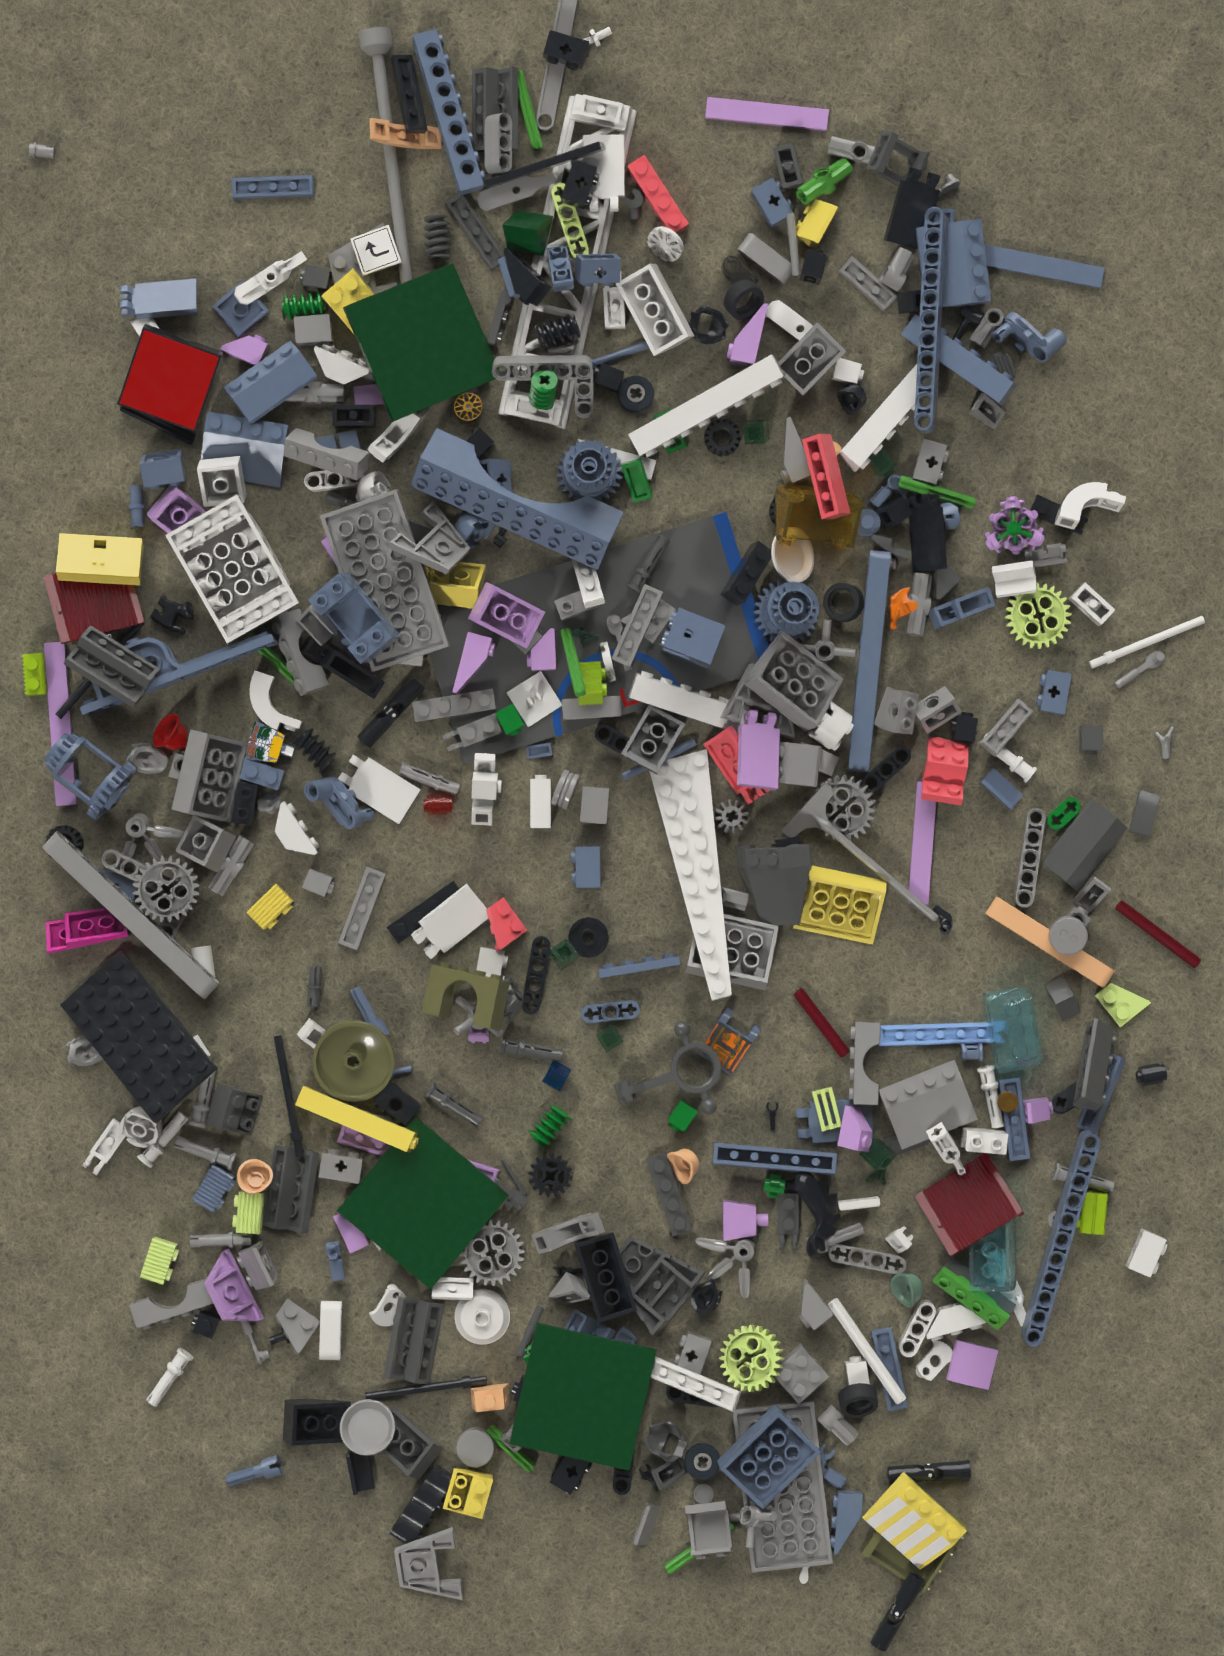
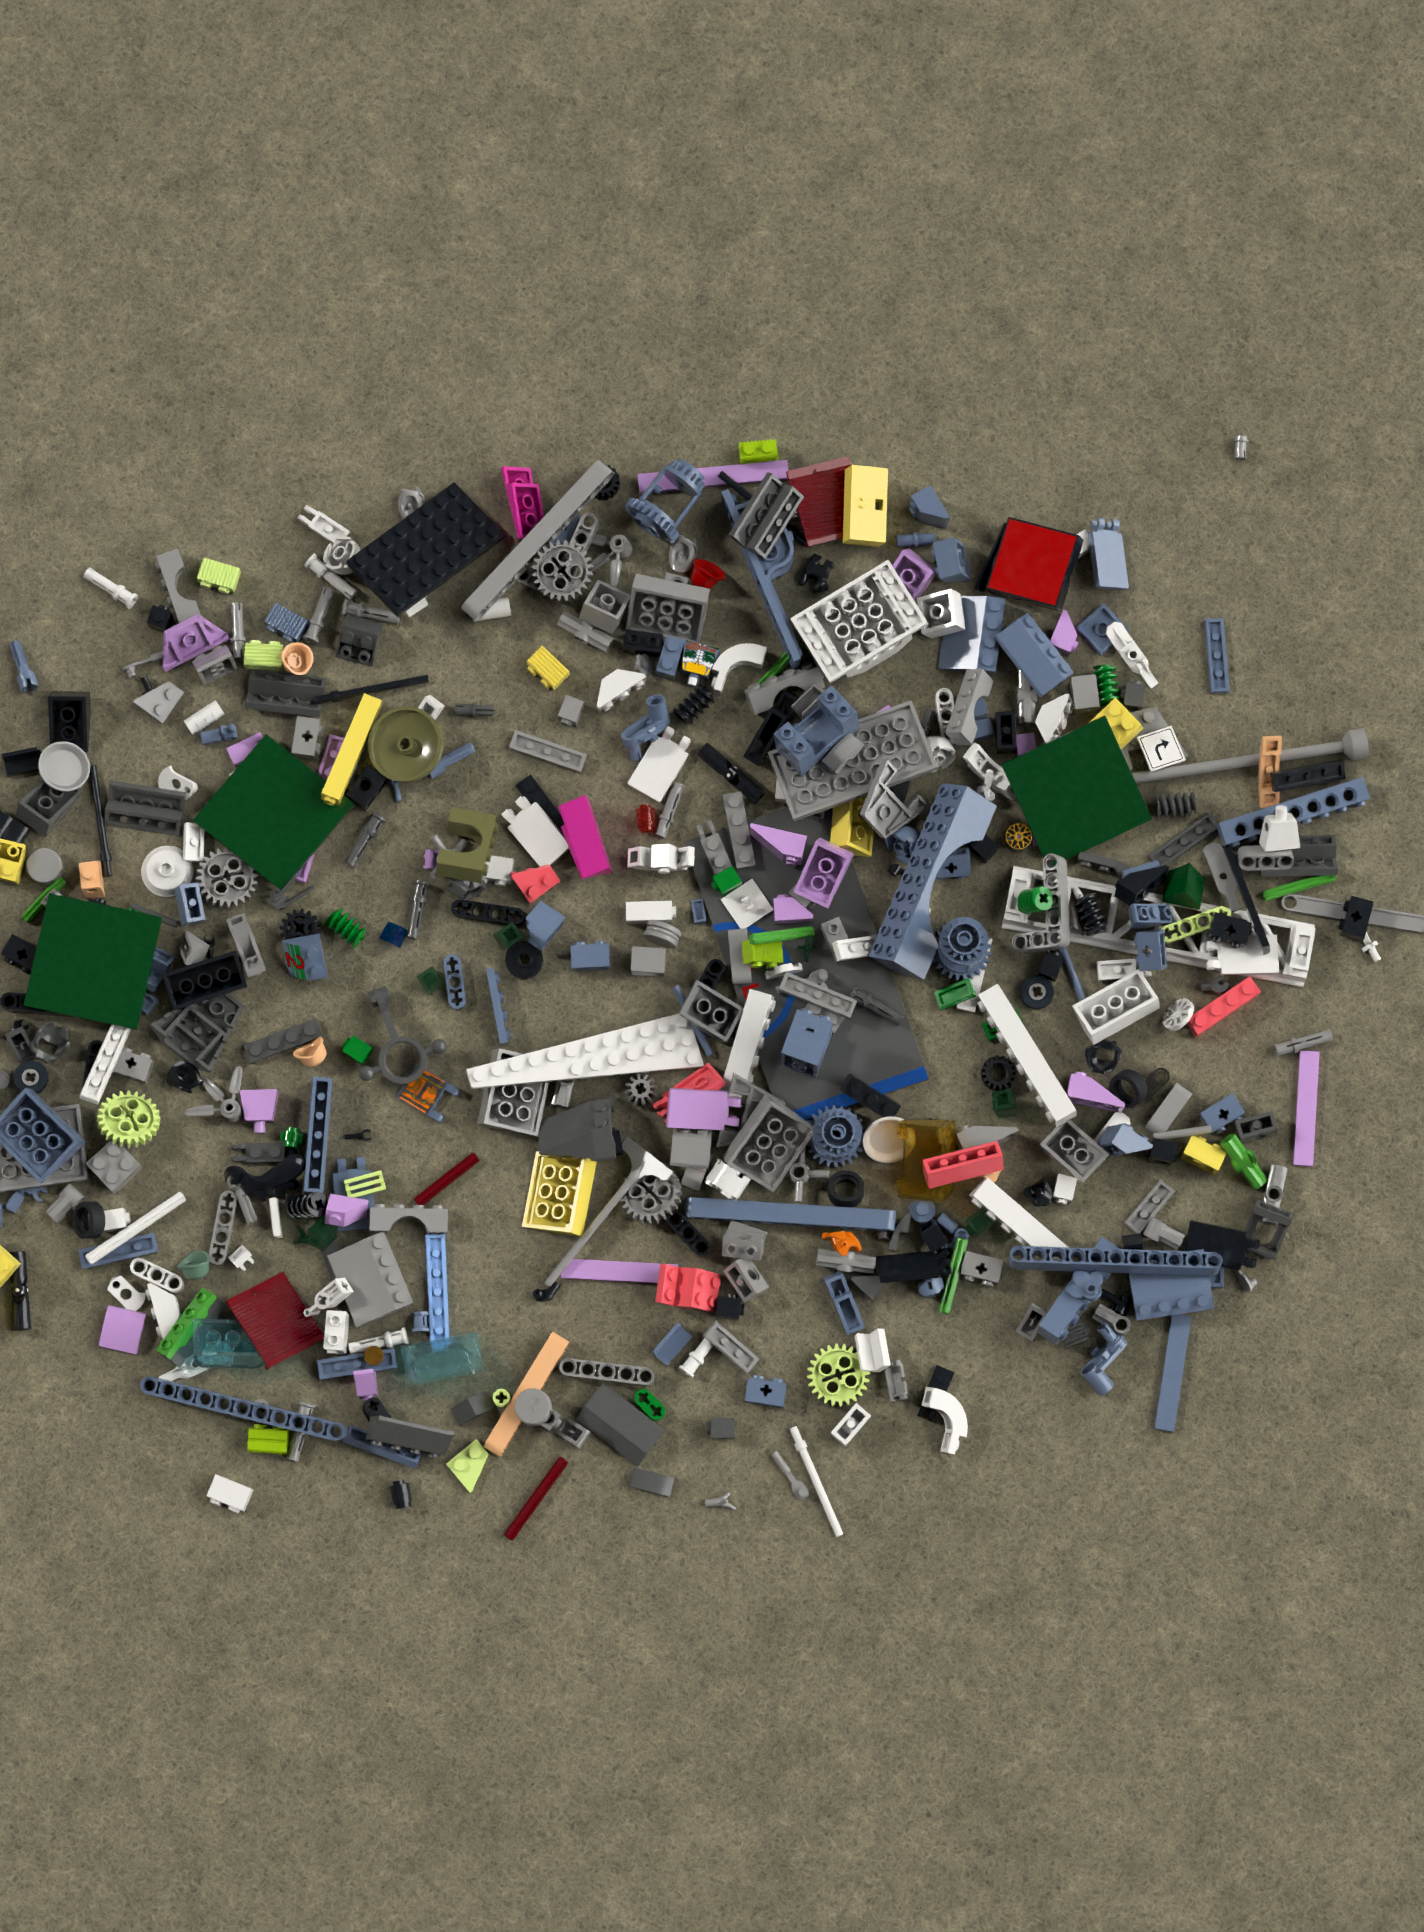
camera: 90 degrees right, 10 degrees down
(104, 490) = (928, 508): none -> sand blue slope
(315, 1276) = (204, 717): none -> white axle
(330, 1330) = (154, 731): white beam -> none
(376, 589) = (843, 751): none -> light grey slope
(416, 441) = (985, 790): none -> white bar
(460, 870) = (584, 838): none -> dark pink slope
(472, 126) = (1279, 831): none -> white torso
(521, 1293) = (189, 904): none -> sand blue brick
(552, 916) = (543, 925): none -> sand blue piece
(582, 1169) = (305, 957): none -> sand blue slope
(703, 136) = (1295, 1045): none -> light grey pin
(802, 307) = (1123, 1140): none -> slope
(812, 1307) = (178, 1174): light grey slope -> none
(848, 1170) = (306, 1205): none -> black piece
(954, 353) = (1084, 1284): none -> sand blue plate
(1015, 541) = (926, 1339): lavender plant -> none
(1057, 973) = (505, 1402): none -> yellowish green bush

